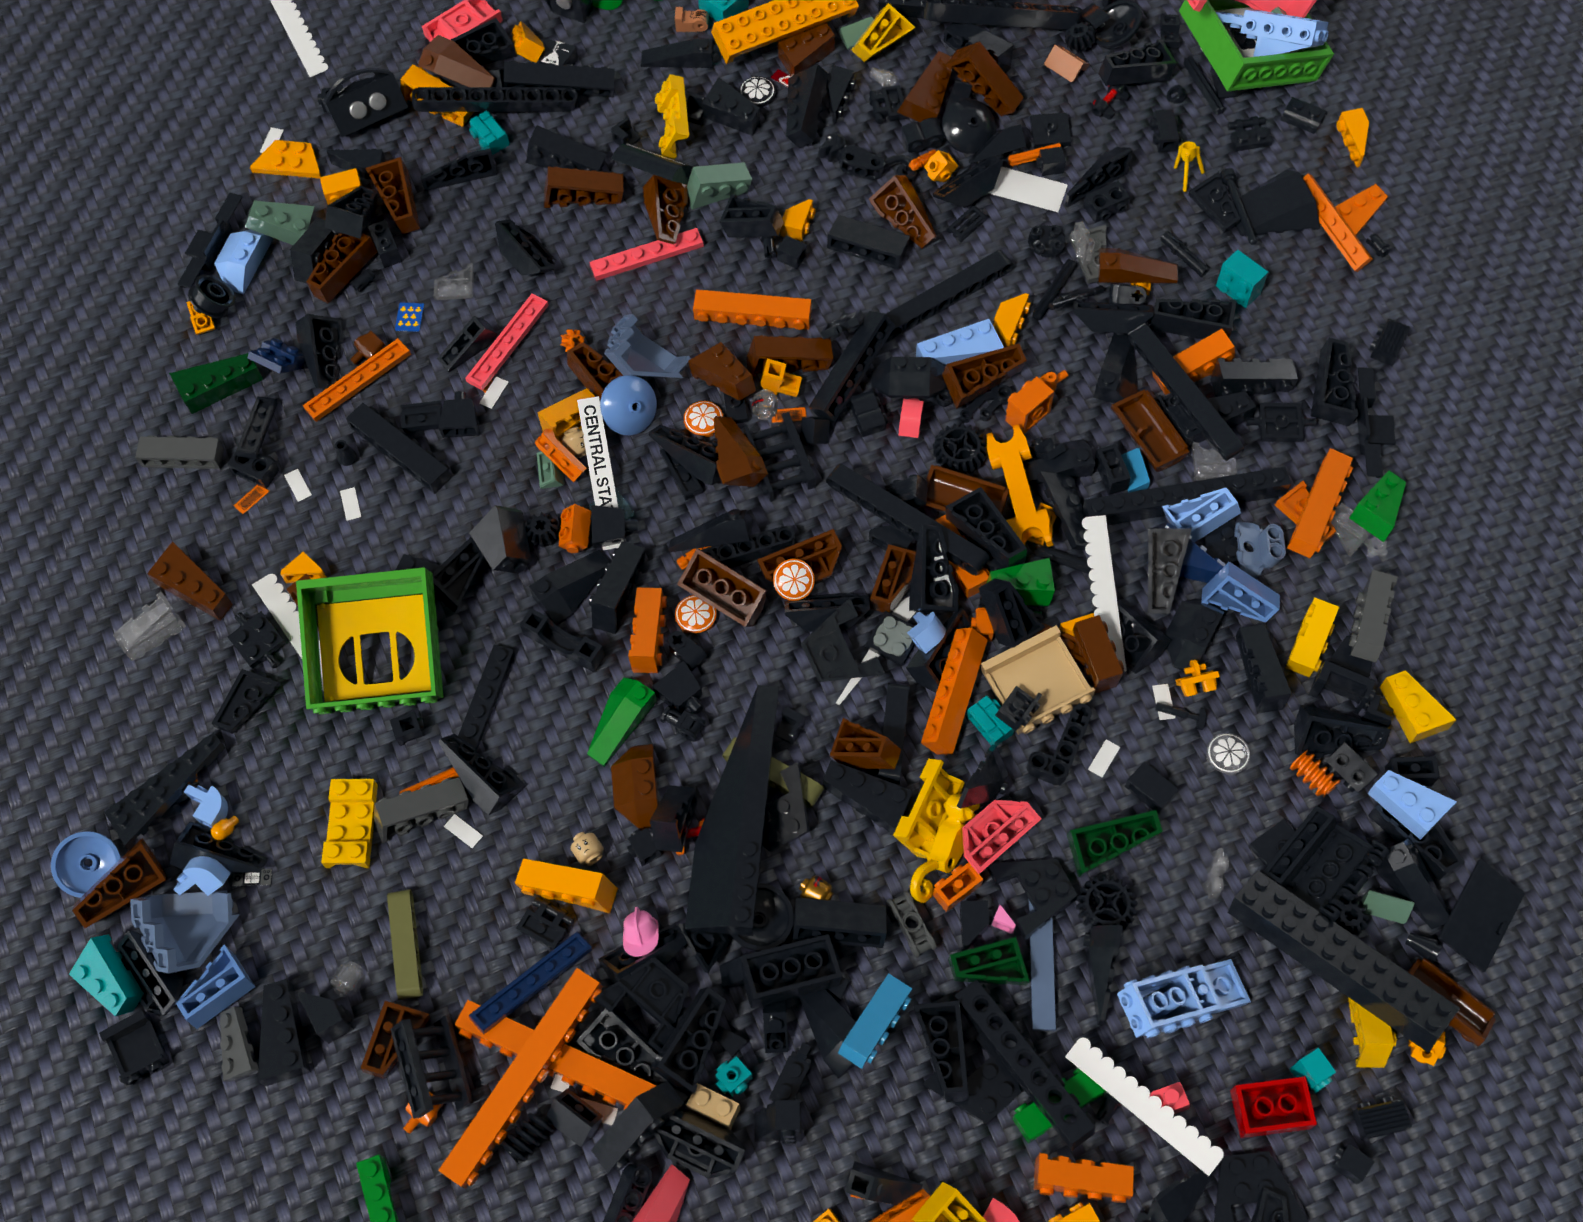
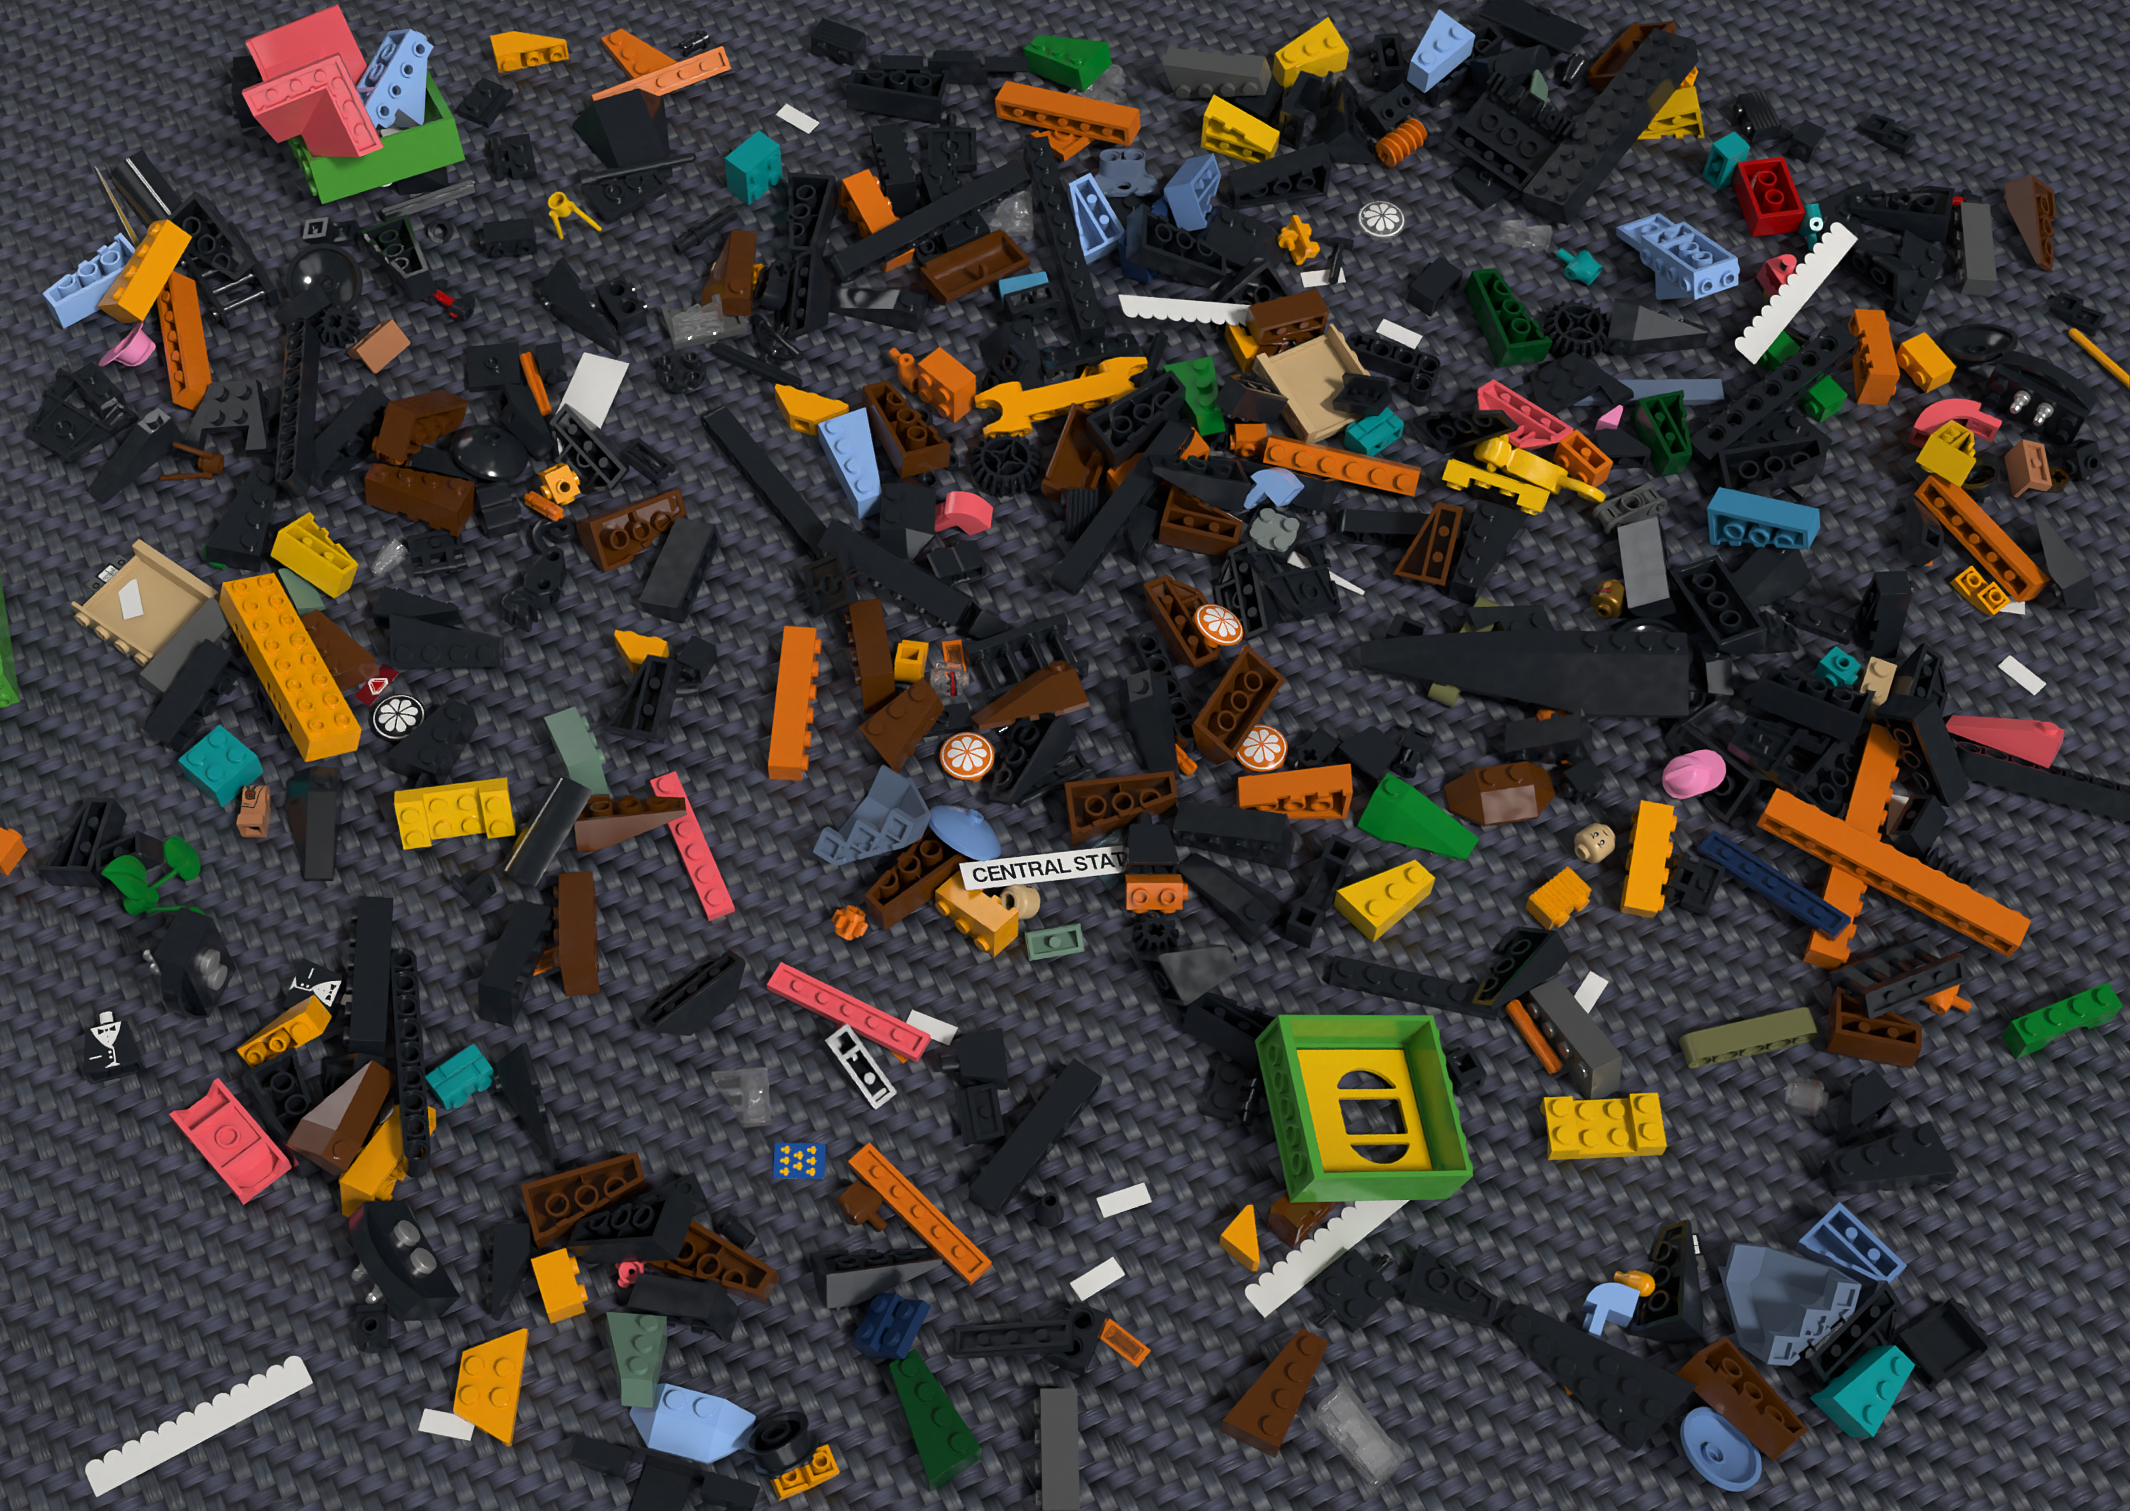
camera: 100 degrees left, 5 degrees down
(205, 873) = (1709, 1288): light blue brick -> none
(234, 1045) = (1918, 1216): dark grey wing -> none
(541, 814) = (1558, 899): none -> light orange brick
(552, 686) = (1384, 898): none -> yellow wedge
(560, 455) = (1045, 915): orange plate -> none
(650, 503) = (1113, 802): none -> reddish brown wedge
(1181, 920) = (1580, 267): none -> teal piece
(1243, 1145) = (1811, 224): none -> teal piece
(1308, 318) = (797, 118): none -> white sticker

